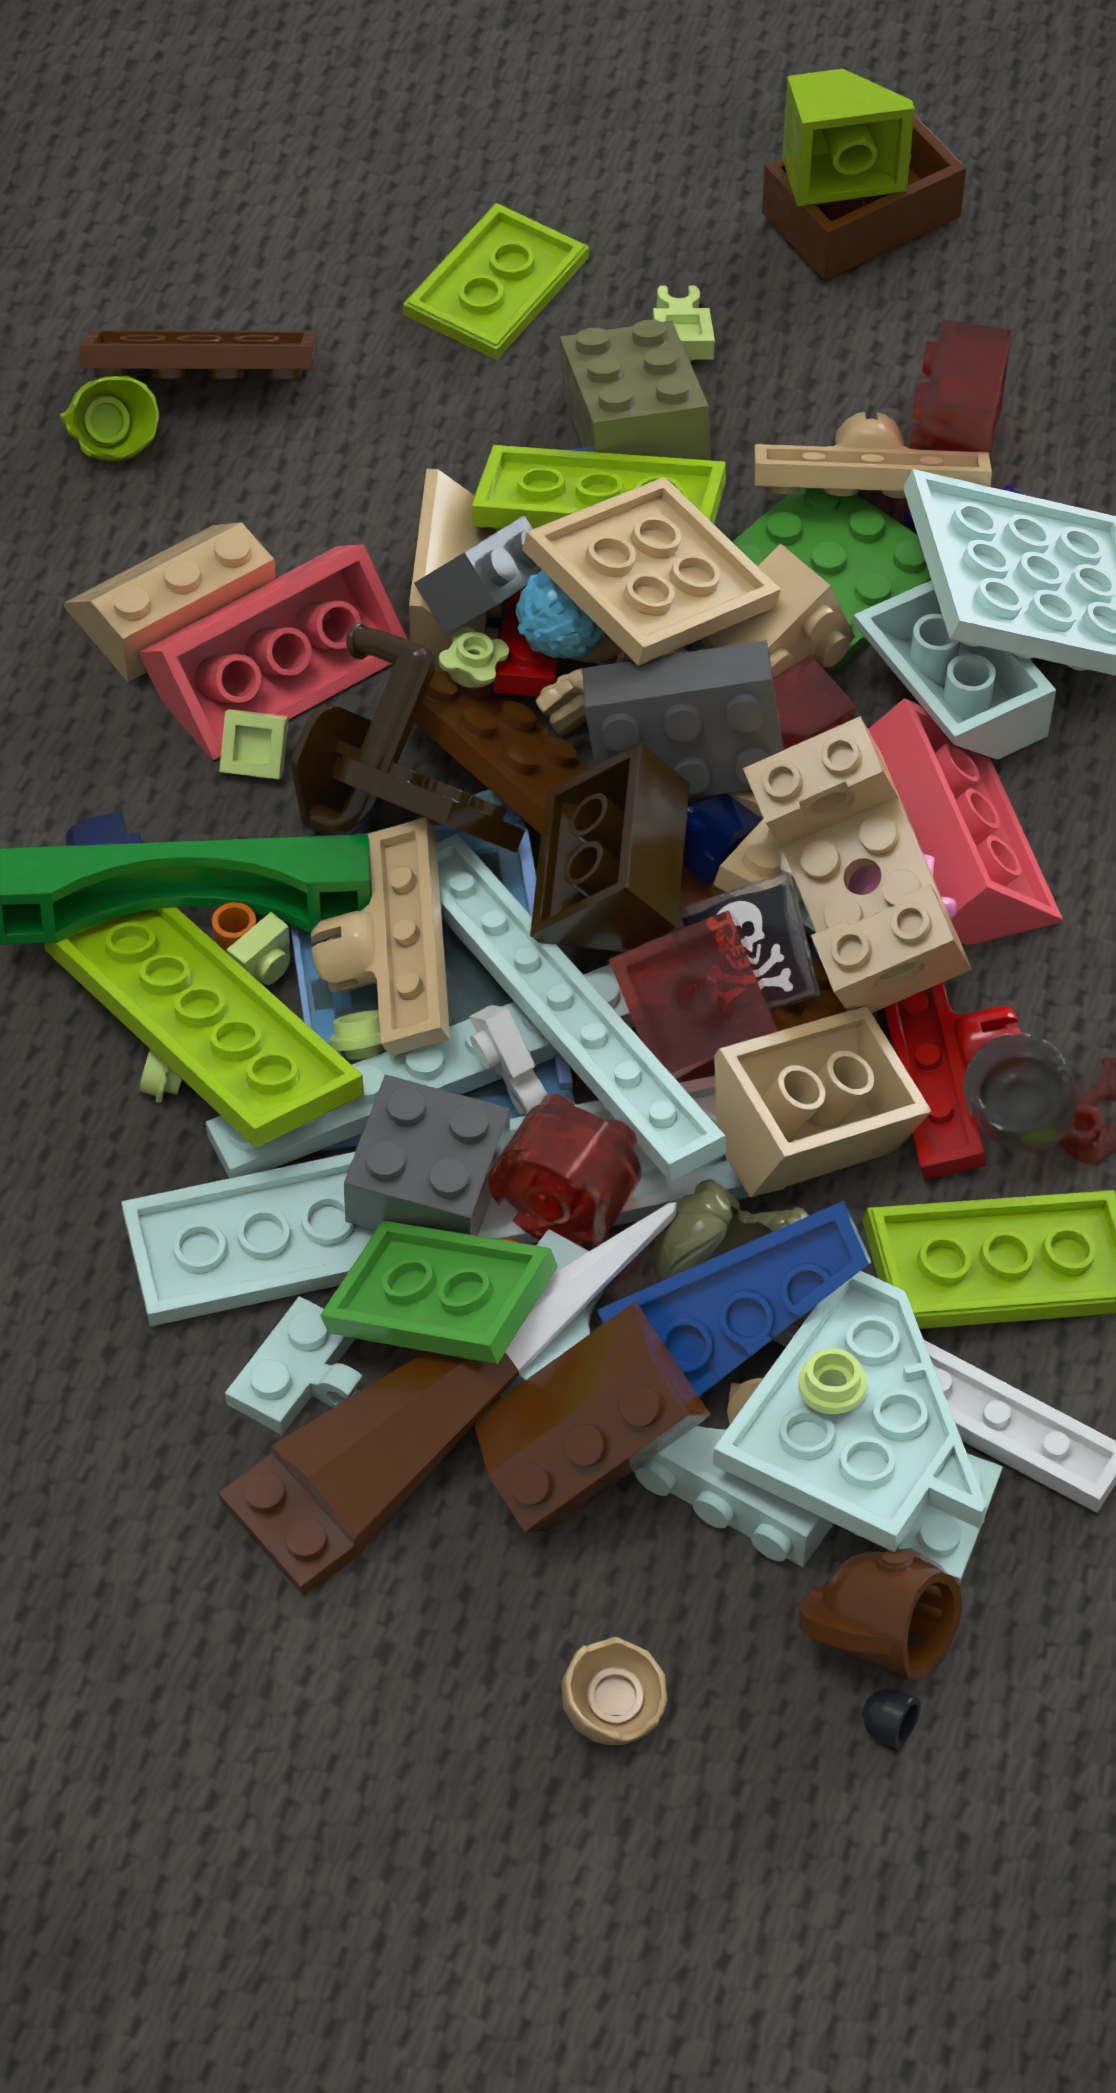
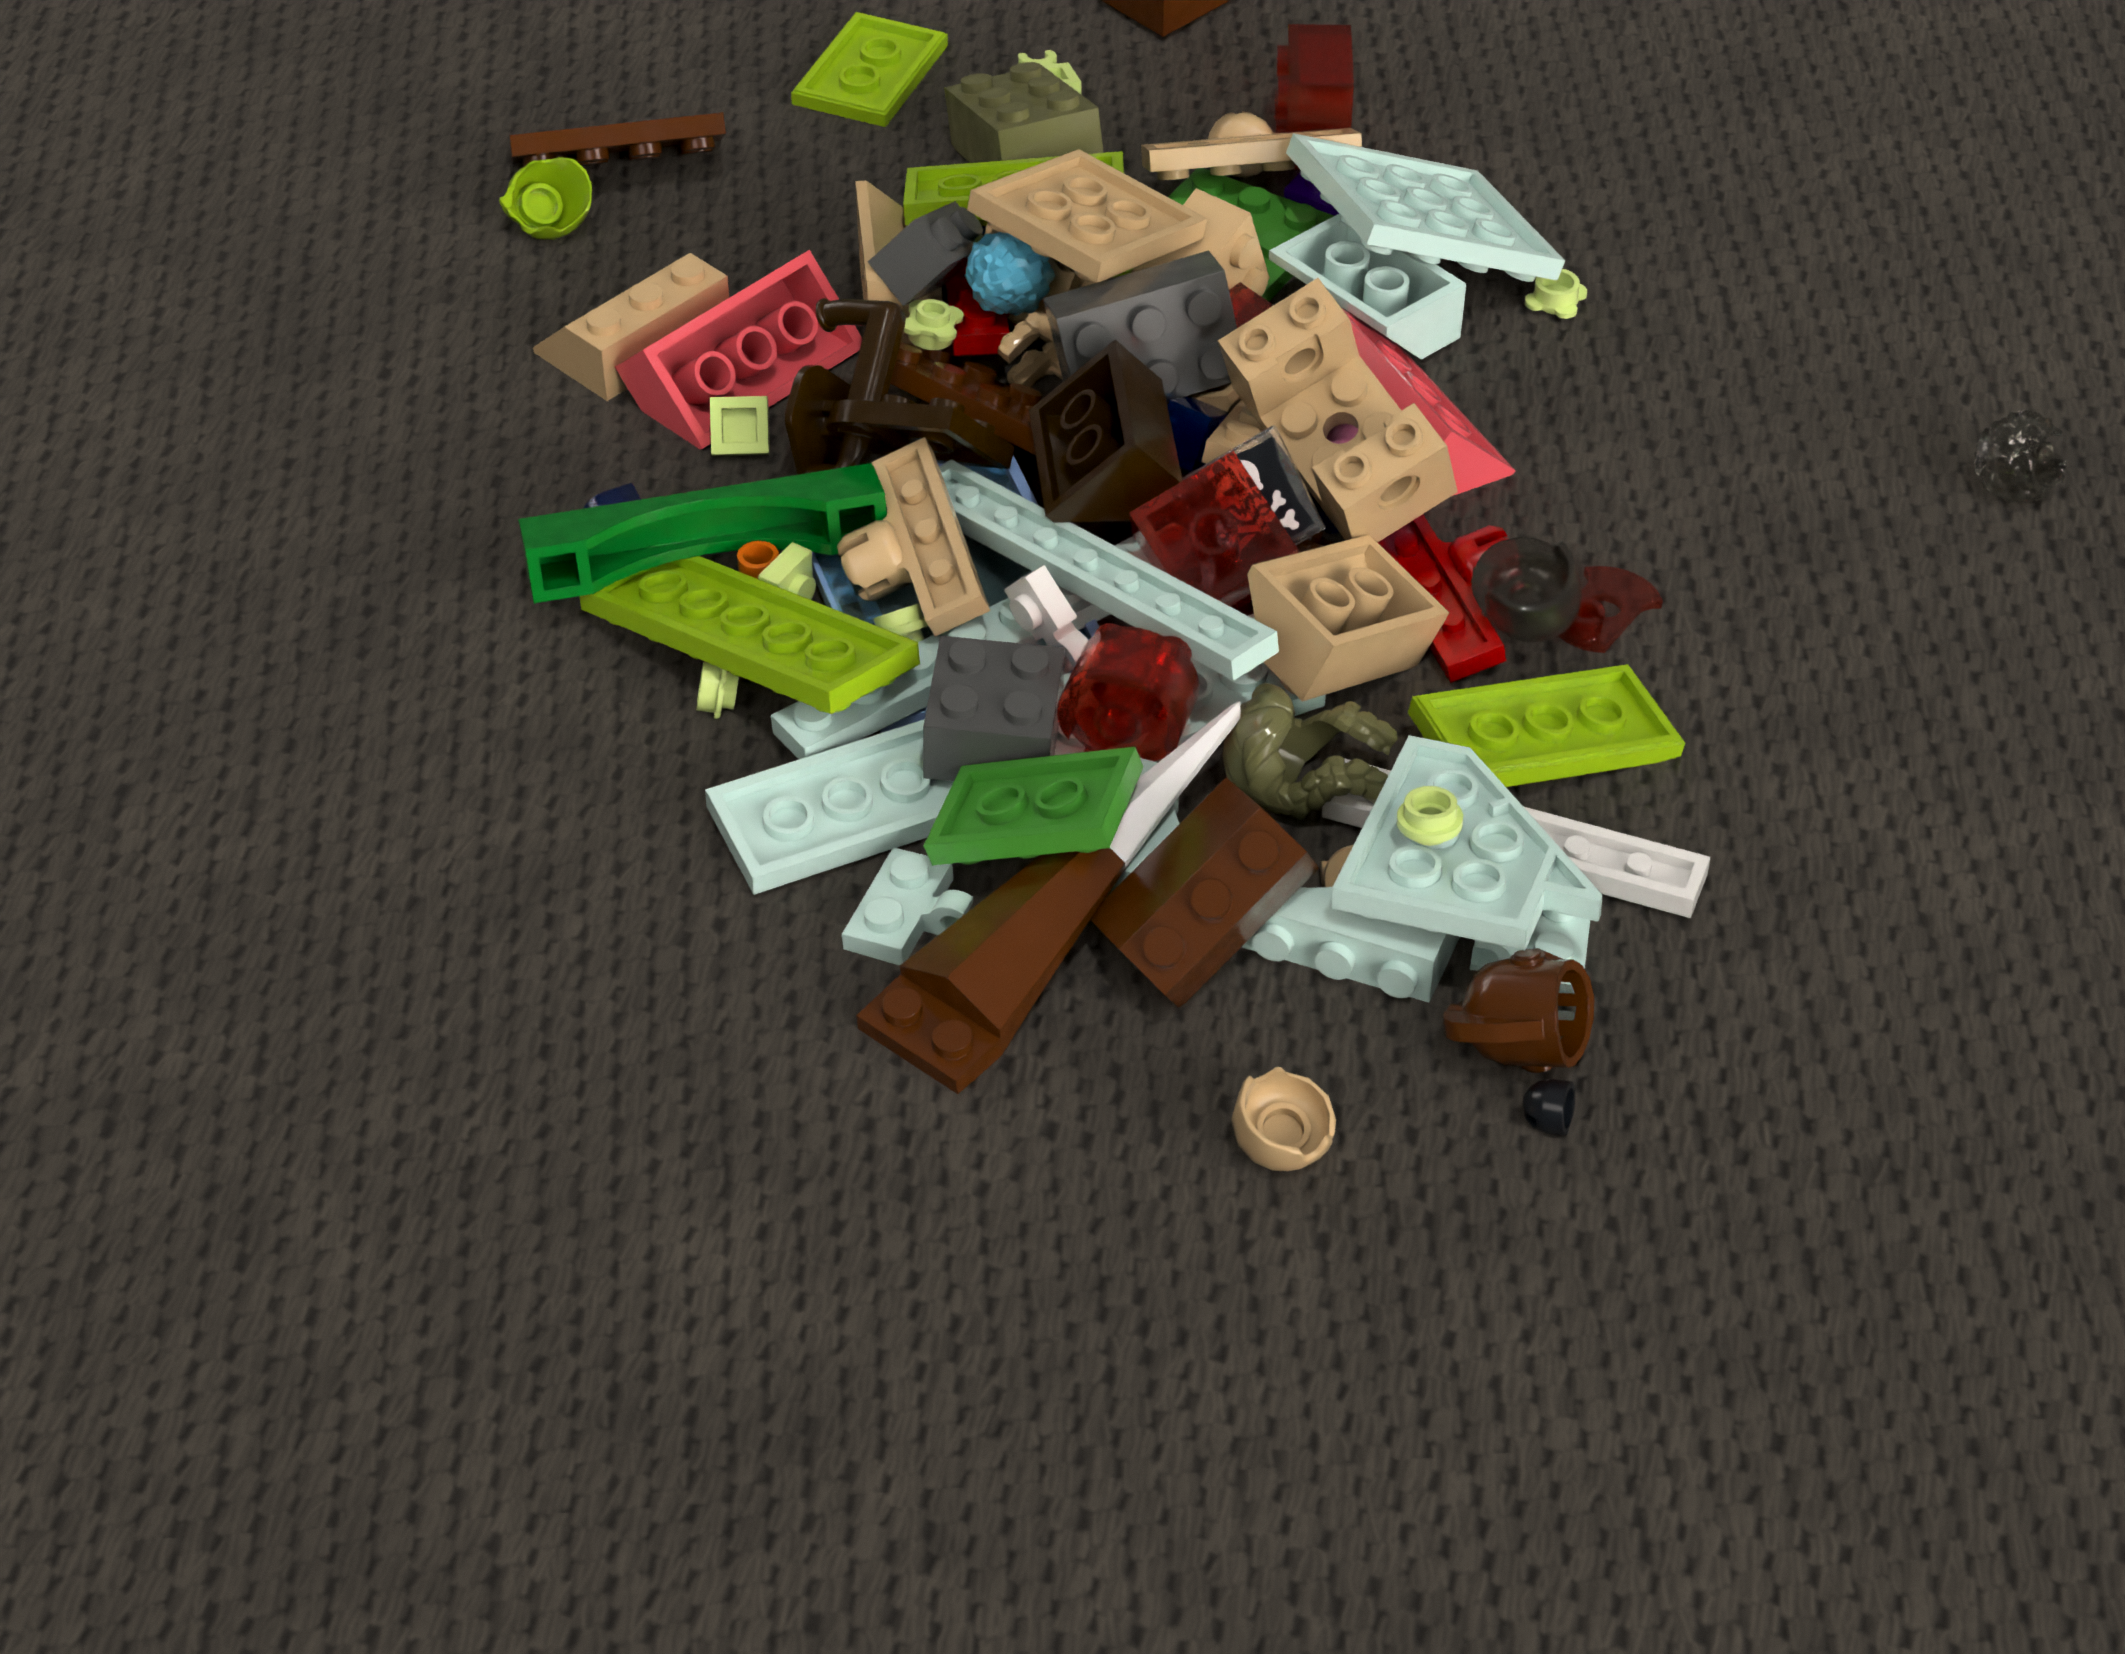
camera: 10 degrees left, 10 degrees down
(749, 1295) = (1337, 759): blue wing -> none

